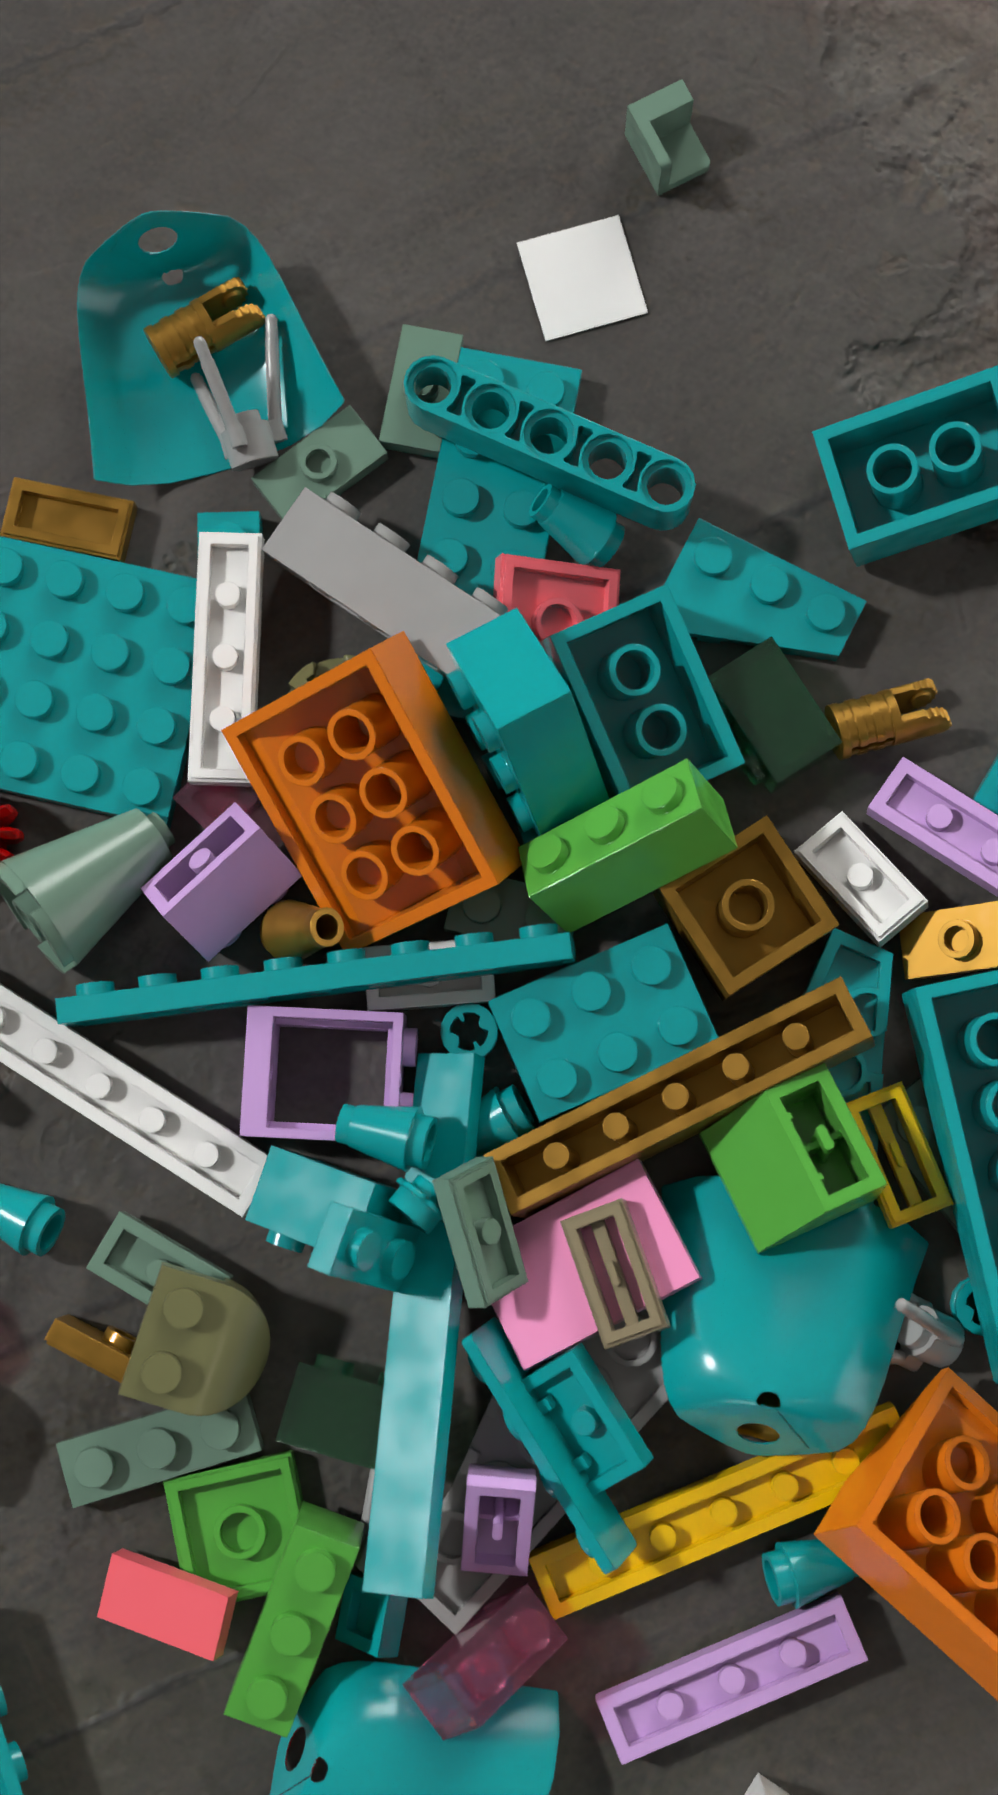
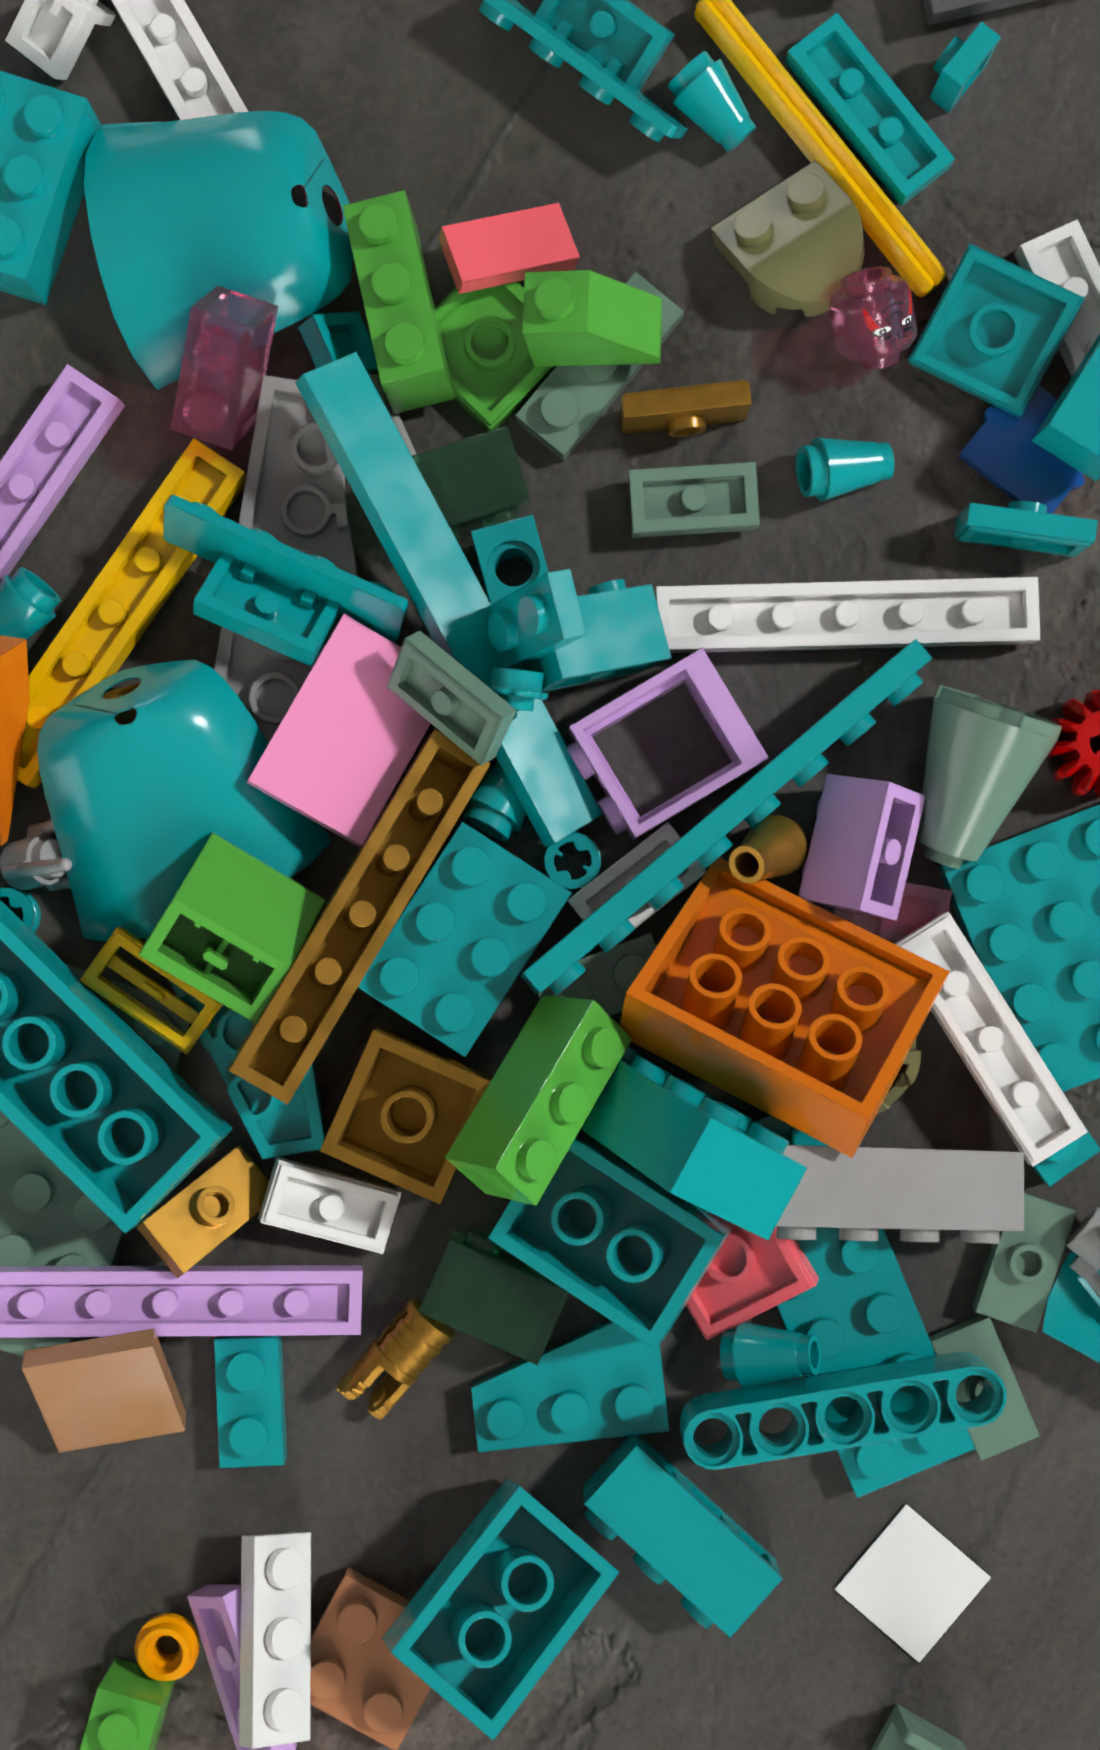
camera: 140 degrees right, 5 degrees up
(142, 1485) = (589, 320): none -> bright green slope
(197, 1344) = (622, 458): olive slope -> none
(345, 1344) = (504, 542): none -> teal brick
(389, 1133) = (579, 727): teal cone -> none
(498, 1519) = (287, 485): lavender slope -> none
(634, 1327) = (307, 761): dark tan tile -> none
(744, 431) = (680, 1535): none -> teal brick

